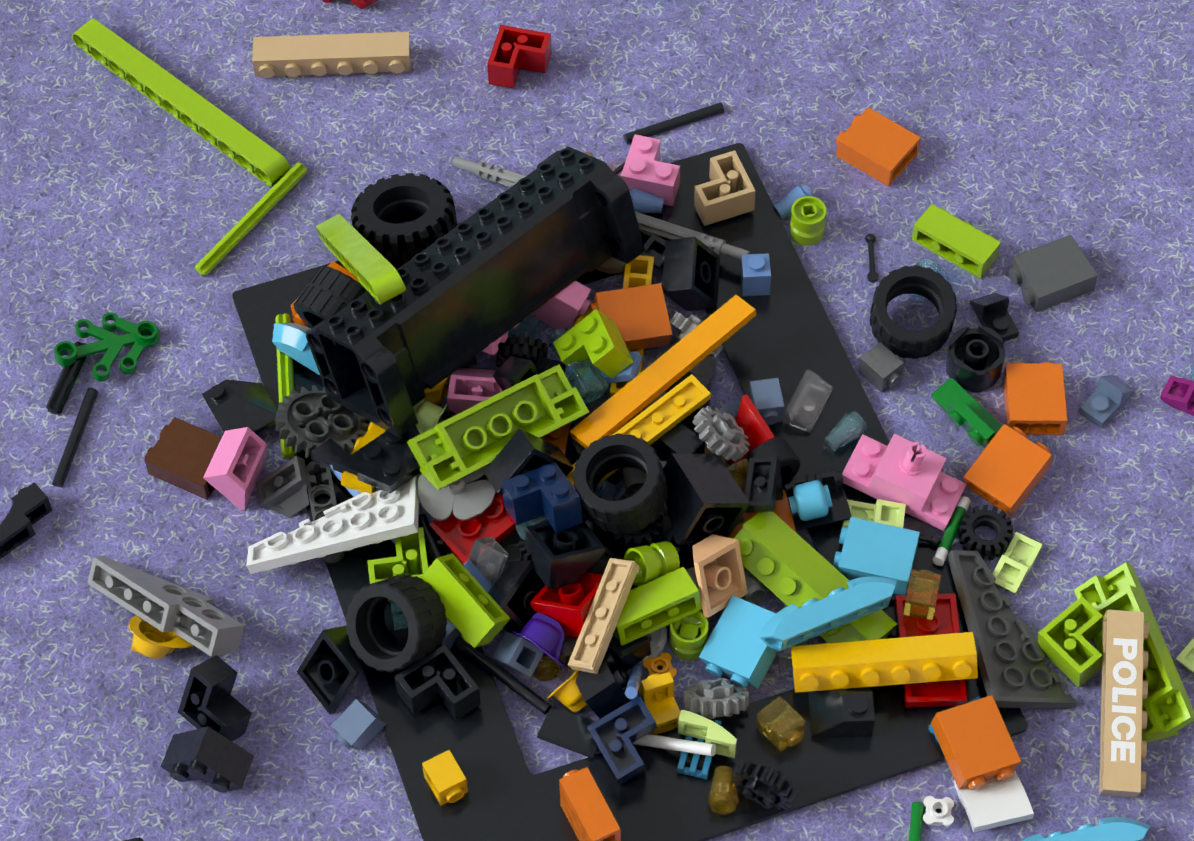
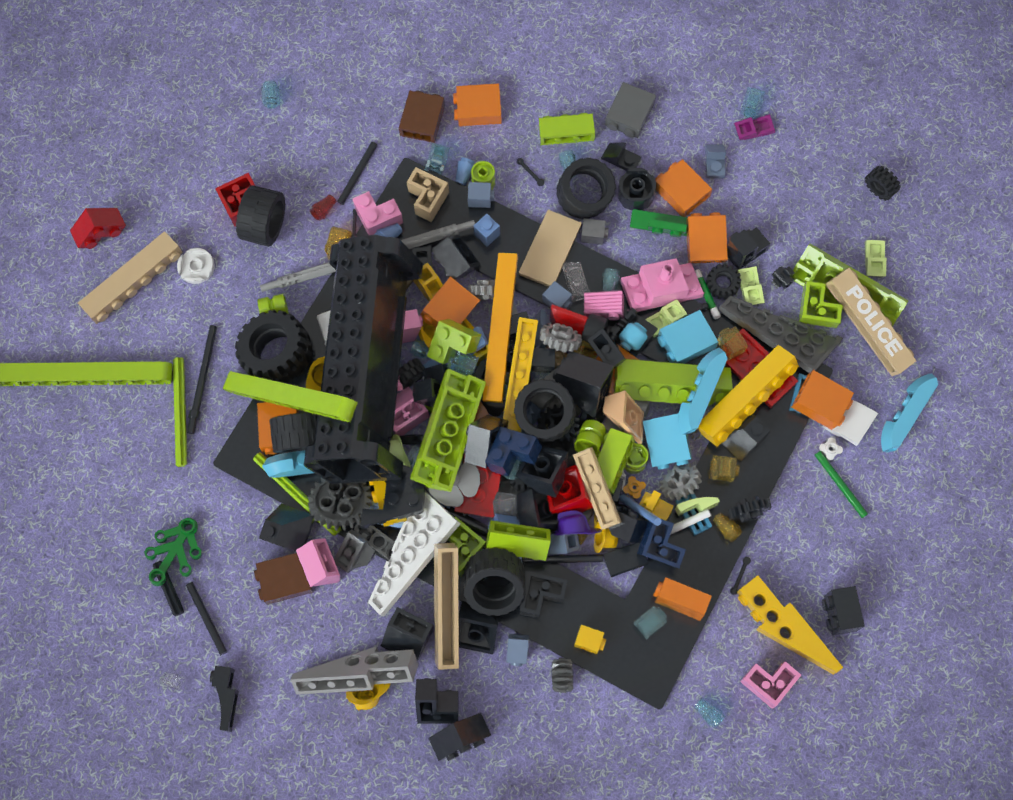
camera: 40 degrees left, 15 degrees up
(261, 610) = (407, 633): none -> black slope
(265, 231) = (194, 413): none -> black bar
(321, 607) = (446, 606): none -> tan brick
(378, 791) = (562, 675): none -> dark grey gear
(418, 95) = (196, 265): none -> white tile
(457, 184) = (277, 303): none -> lime wheel
(520, 83) = (260, 215): none -> black tyre
(532, 816) = (651, 621): none -> clear light blue brick
(599, 129) = (322, 208): none -> clear red cone
(775, 166) = (437, 158): none -> clear light blue brick
(783, 233) = (480, 194): none -> sand blue brick
(801, 114) = (422, 116): none -> reddish brown brick
(812, 346) = (550, 248): none -> tan tile
(814, 446) = (604, 304): none -> bright pink brick
(1048, 516) = (746, 247): none -> black brick
(1063, 580) = (783, 277): none -> black gear

